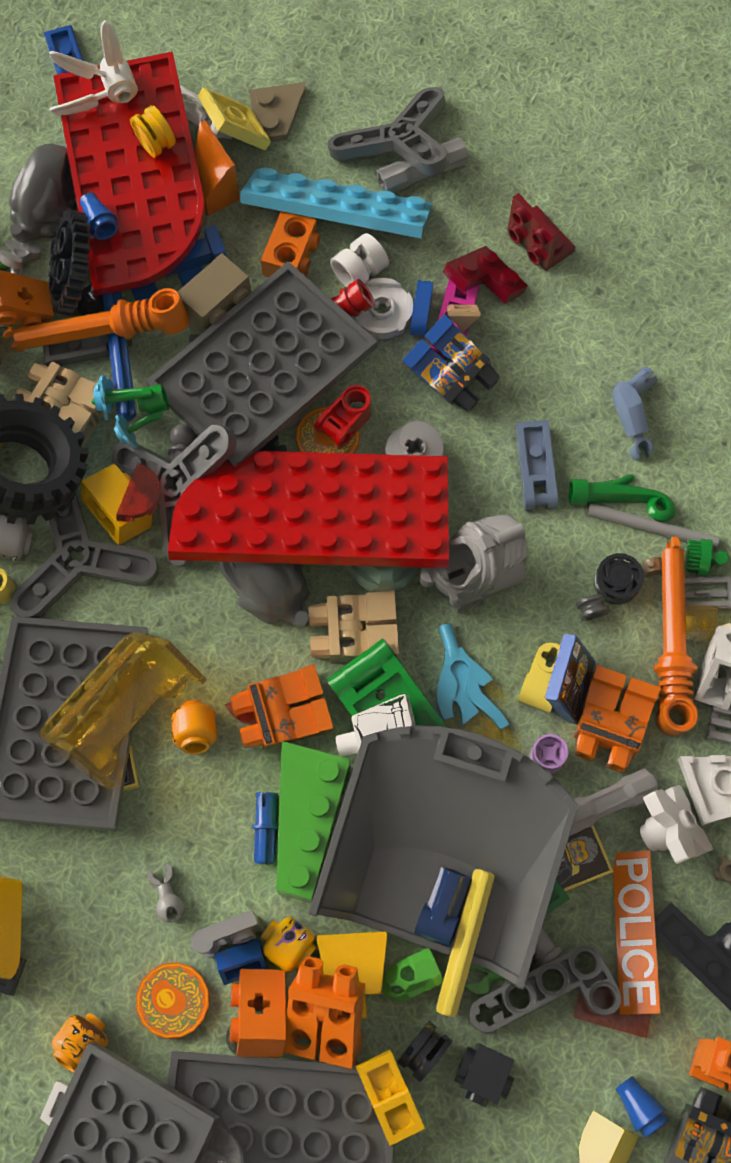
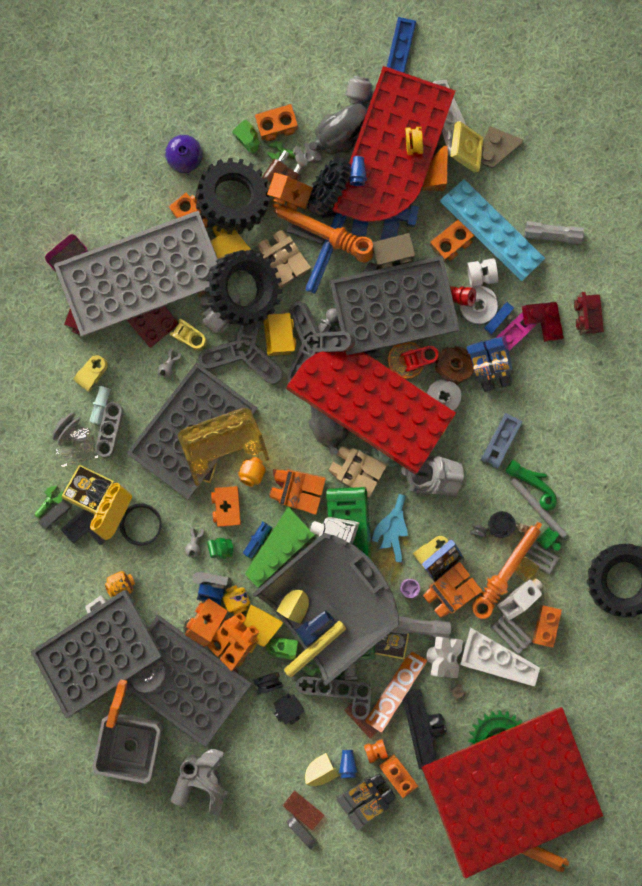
camera: 30 degrees right, 15 degrees up
(30, 904) = (122, 528): none -> black tyre
(40, 130) = (359, 89): none -> light grey head
(114, 72) = (414, 92): white plant -> none
(140, 496) = (292, 341): clear red tile -> none
(149, 400) = (325, 295): green plant -> none
(172, 1000) = (170, 591): tile -> none
(180, 783) = (231, 495): none -> orange brick
(214, 876) = (220, 548): none -> green piece
(388, 892) = (294, 606): none -> light yellow brick
(390, 1097) = (240, 693): yellow slope -> none
(391, 410) = (450, 373): none -> reddish brown plate
(404, 136) = (552, 222): dark grey piece -> none
(463, 315) = (516, 337): tan slope -> none
(631, 410) = (568, 439): sand blue arm -> none
(670, 1052) = (375, 751): none -> orange wheel

